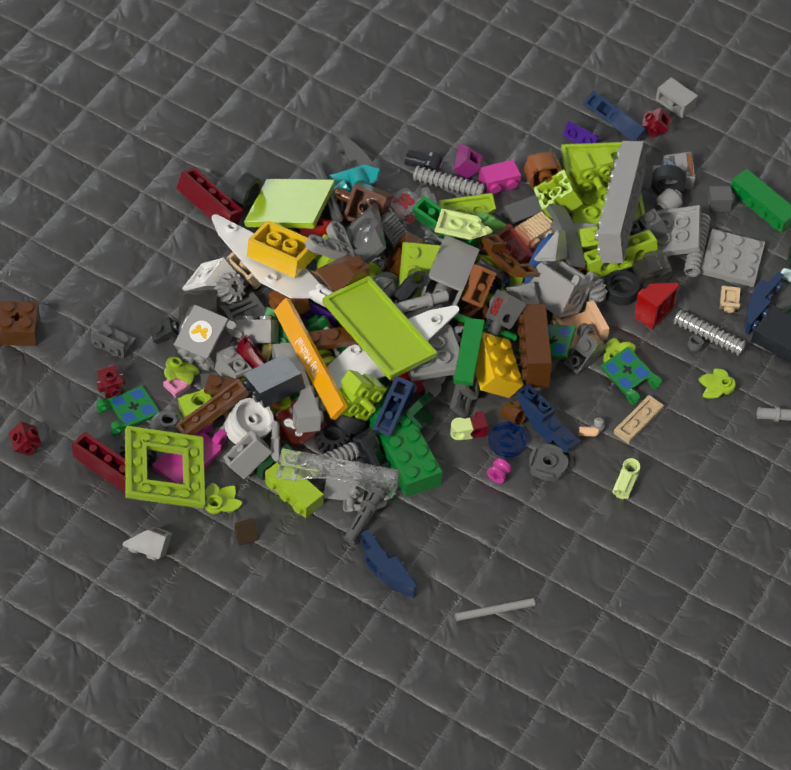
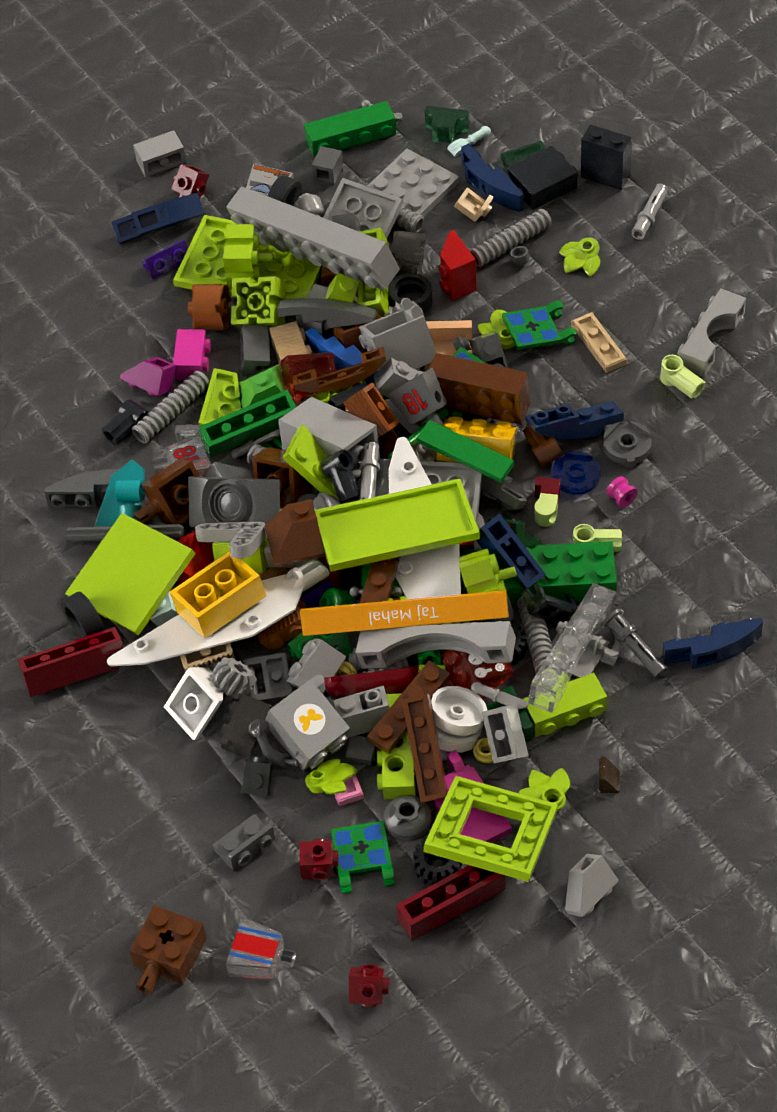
camera: 60 degrees left, 0 degrees up
(31, 372) = (257, 952): none -> torso
(273, 381) = (429, 658): brick -> none
(449, 468) = (589, 534): none -> yellowish green piece
(460, 225) = (271, 401): yellowish green tile -> none
(555, 248) = (353, 324): light grey slope -> none
(594, 429) = (597, 387): arm -> none
(704, 488) = (723, 312): none -> light grey arch

